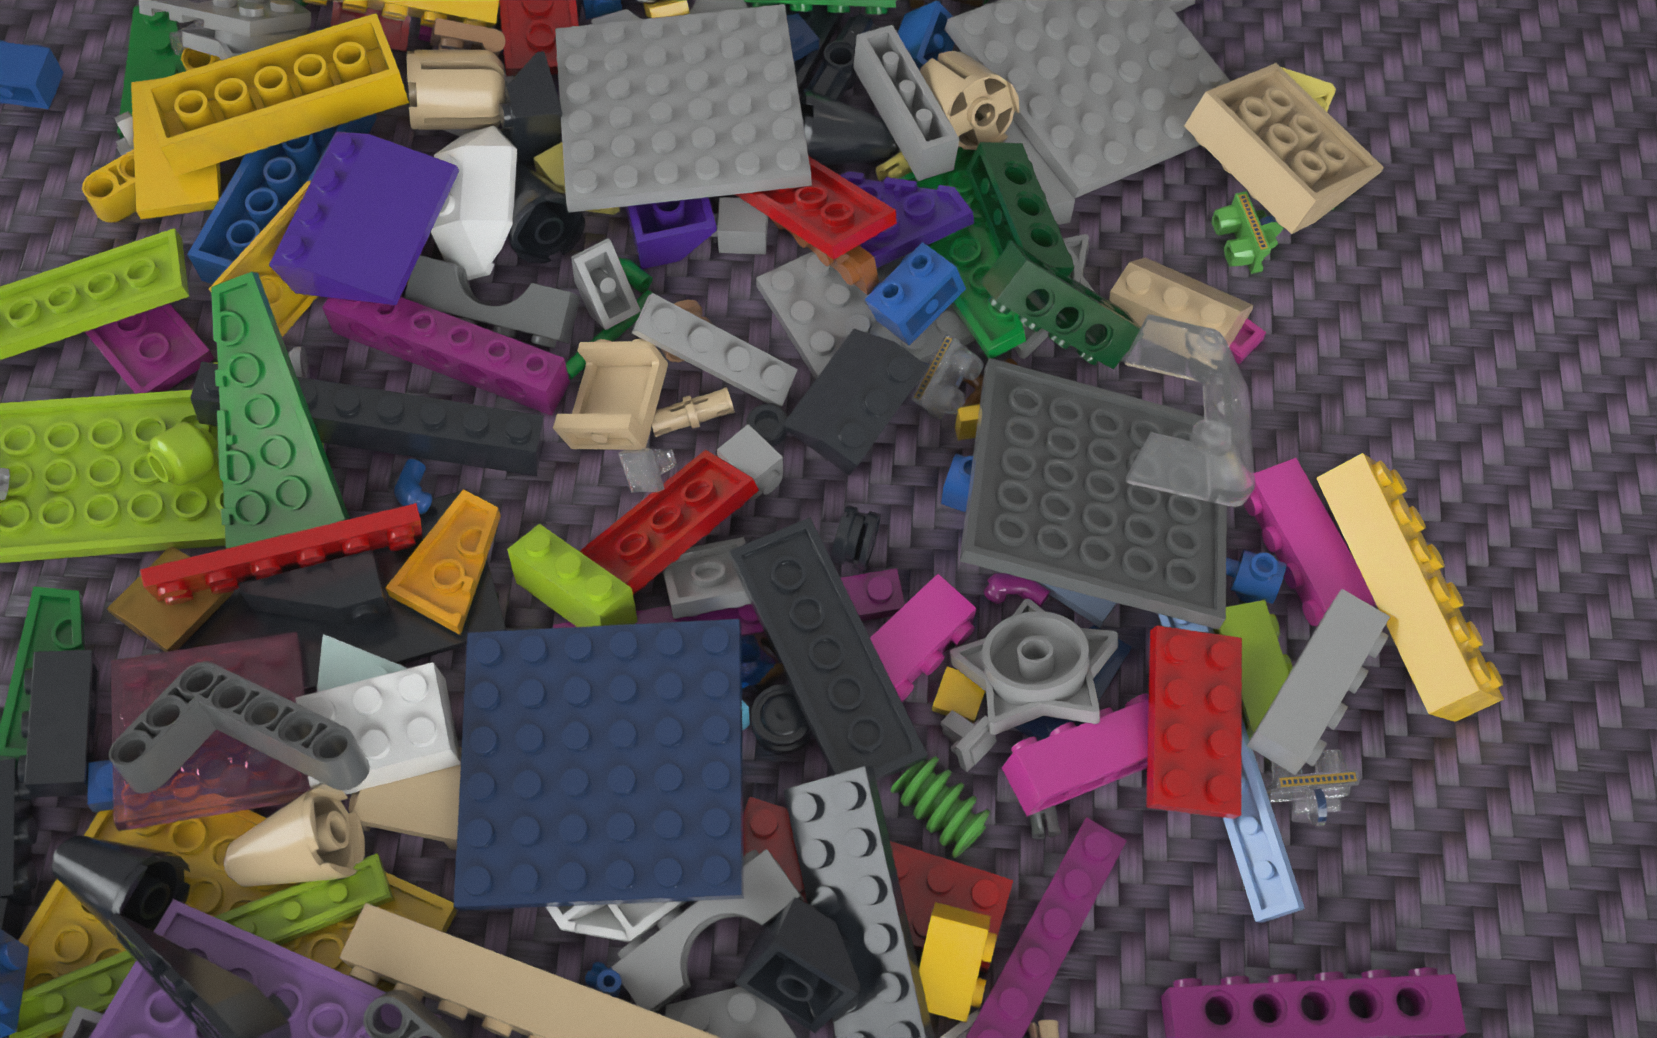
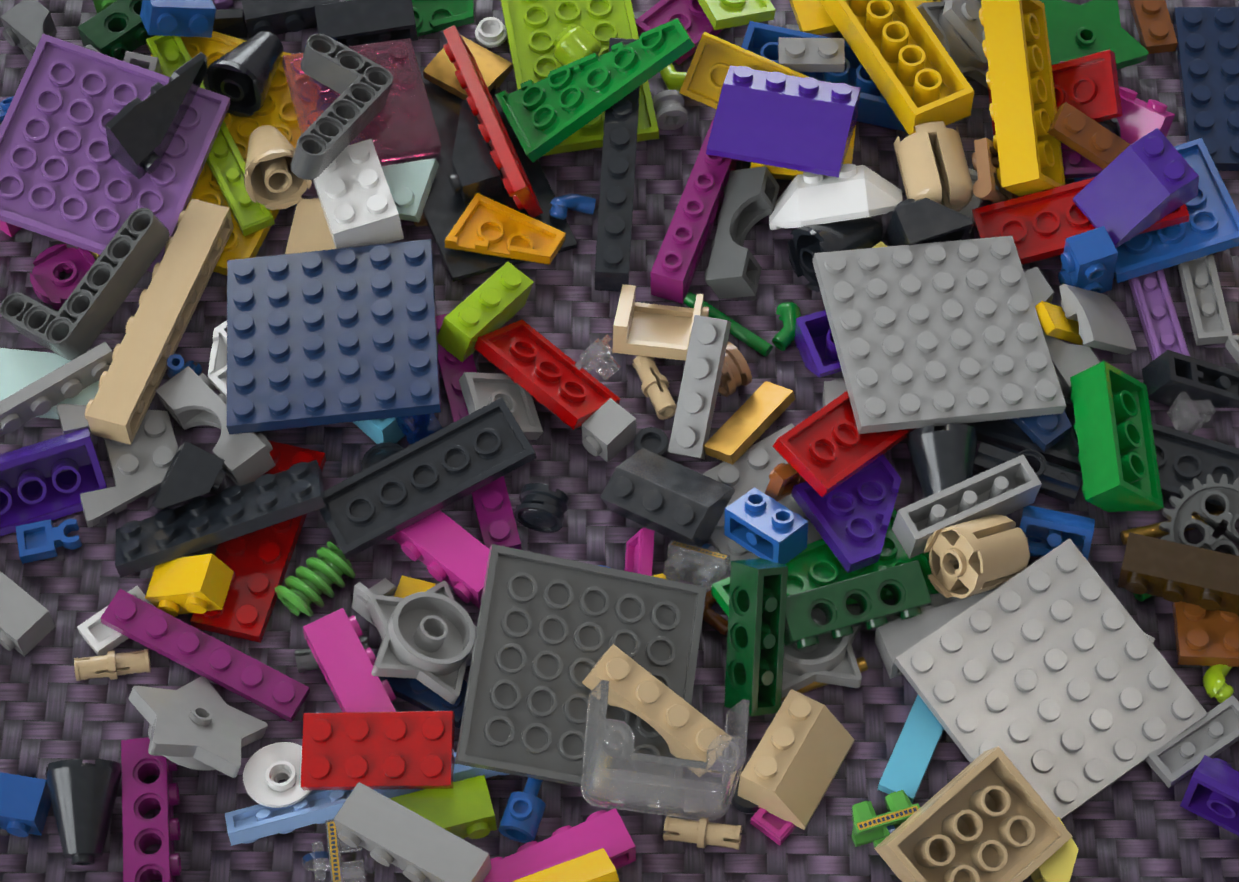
camera: 90 degrees right, 5 degrees down
(108, 574) = (490, 32): none -> white plate
(260, 189) = (812, 54): none -> light grey plate
(604, 285) = (756, 303): light grey slope -> none
(754, 316) = (749, 422): none -> pearl gold tile
(933, 440) = (640, 552): none -> dark pink tile
(1148, 409) = (641, 693): none -> tan arch
(1157, 206) = (912, 752): none -> medium azure tile
(1161, 945) = (196, 726): none -> light grey plate
(1228, 837) = (268, 767): none -> white dish
(1263, 400) = (702, 832): none -> tan pin

